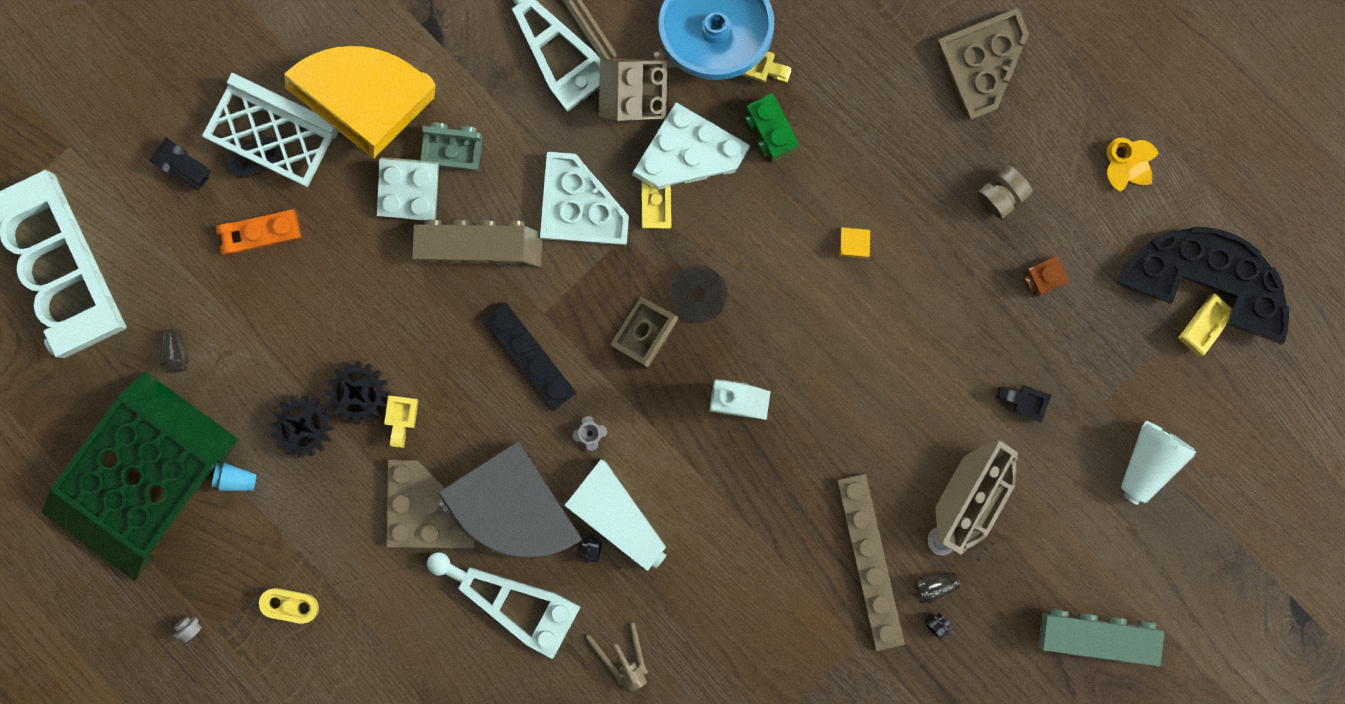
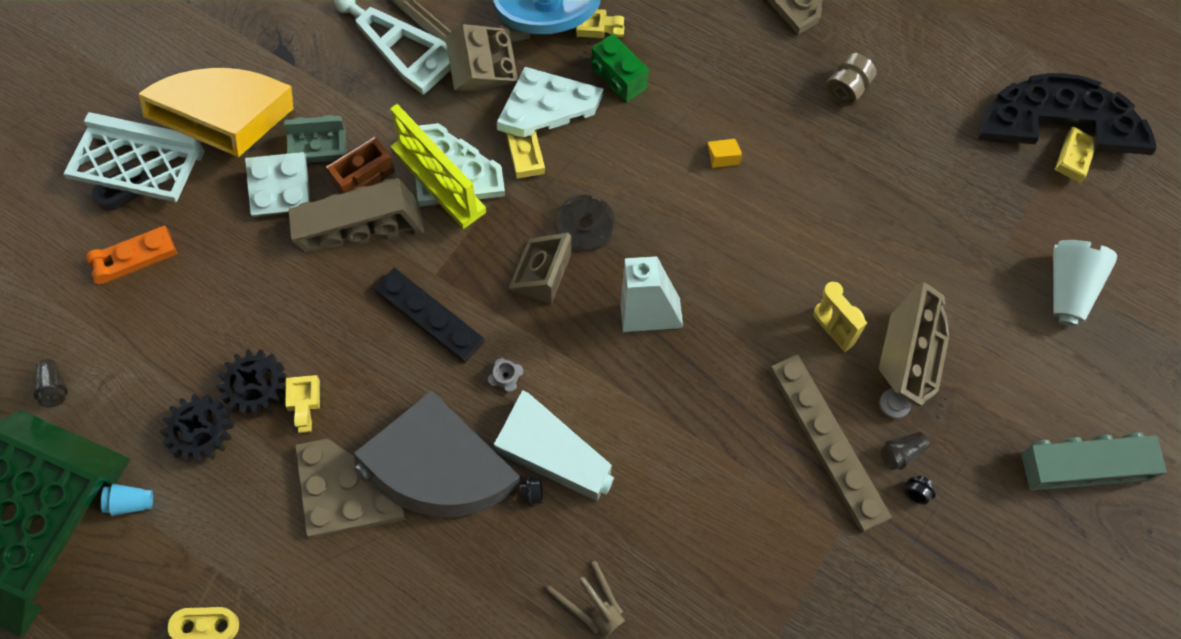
camera: 15 degrees left, 20 degrees down
(176, 161) = (38, 203): black piece -> none
(490, 193) = (361, 167): none -> dark orange brick
(553, 623) = (507, 580): light aqua plate -> none
(562, 218) = (435, 170): none -> neon yellow fence
(915, 459) = (846, 321): none -> light yellow plate
(1028, 402) = (935, 254): black plate -> none
(1045, 276) = (911, 145): dark orange bracket -> none
(1133, 166) = (953, 39): yellow plate -> none

